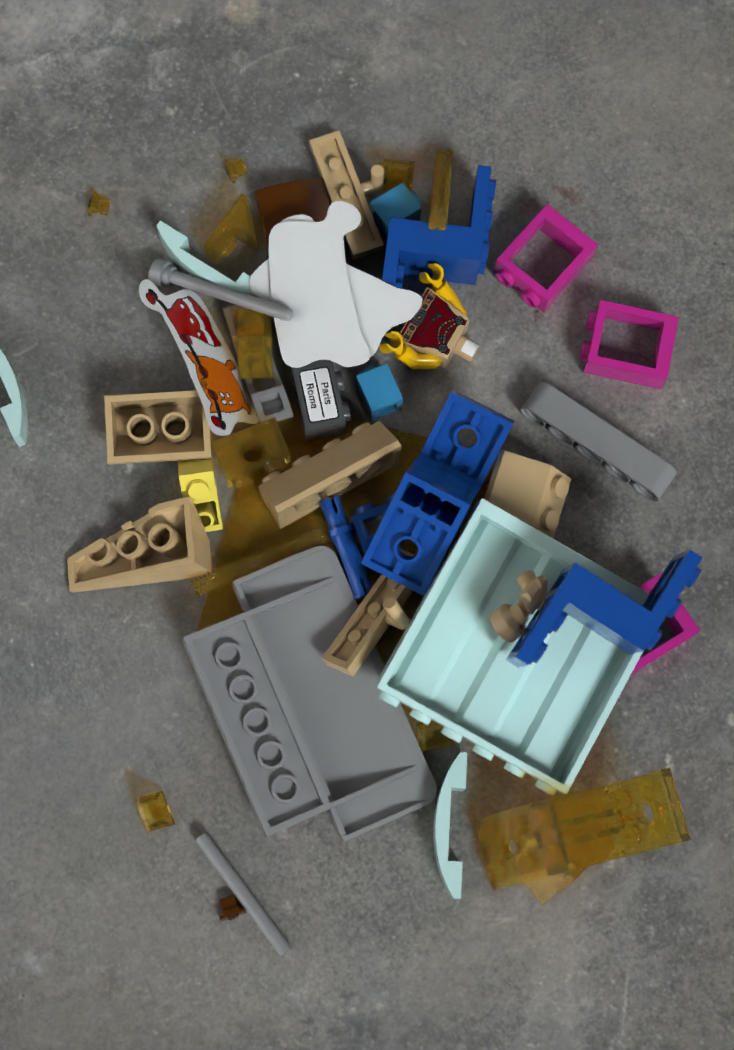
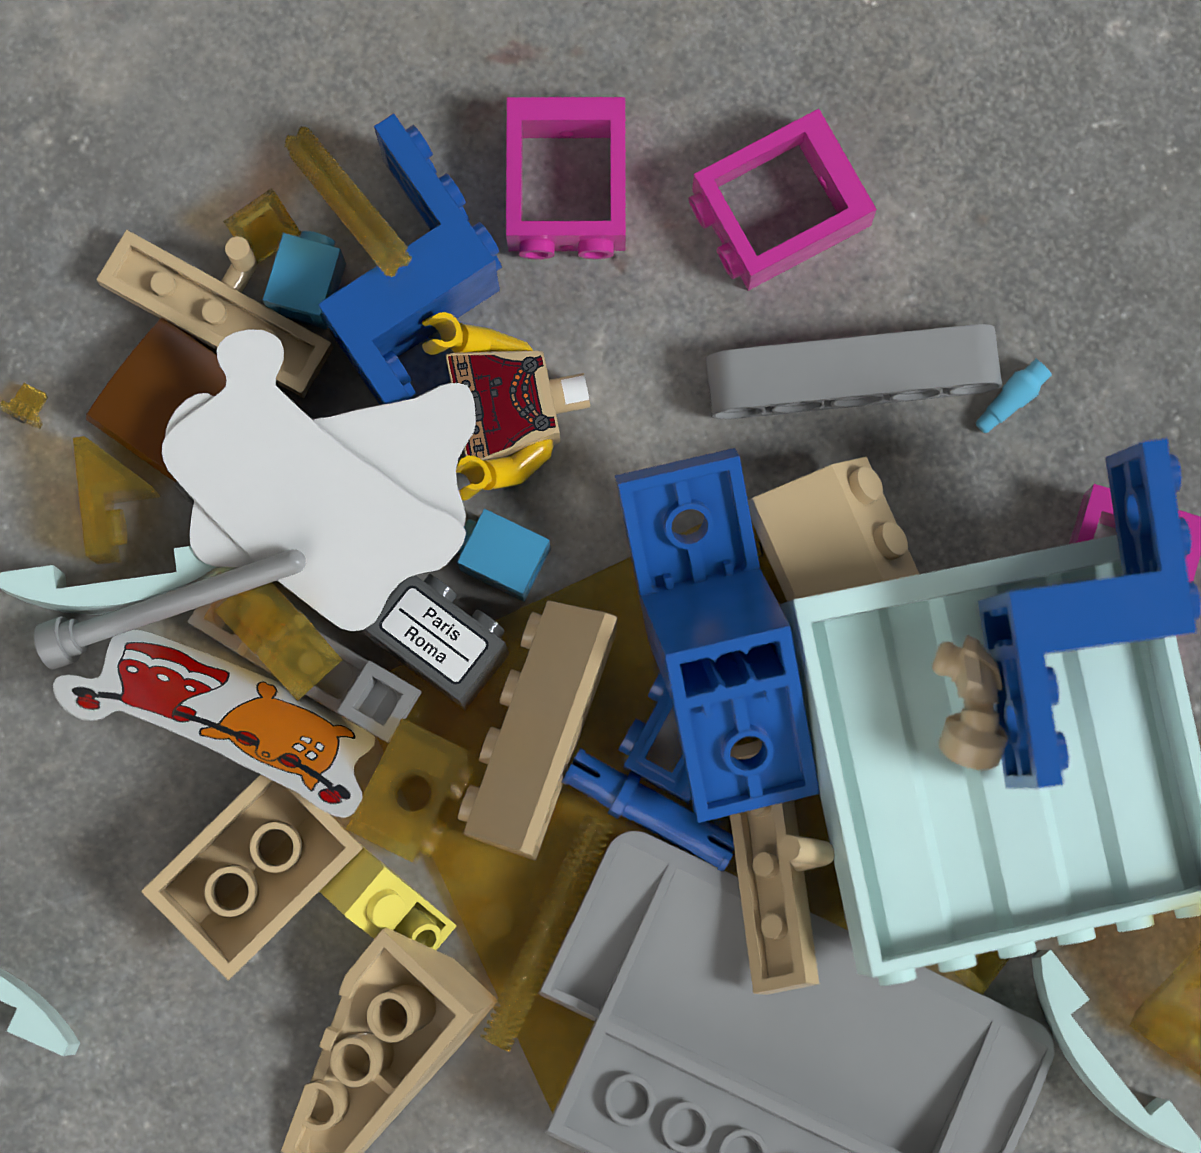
camera: 35 degrees left, 5 degrees up
(662, 510) = (1015, 394): none -> medium azure piece

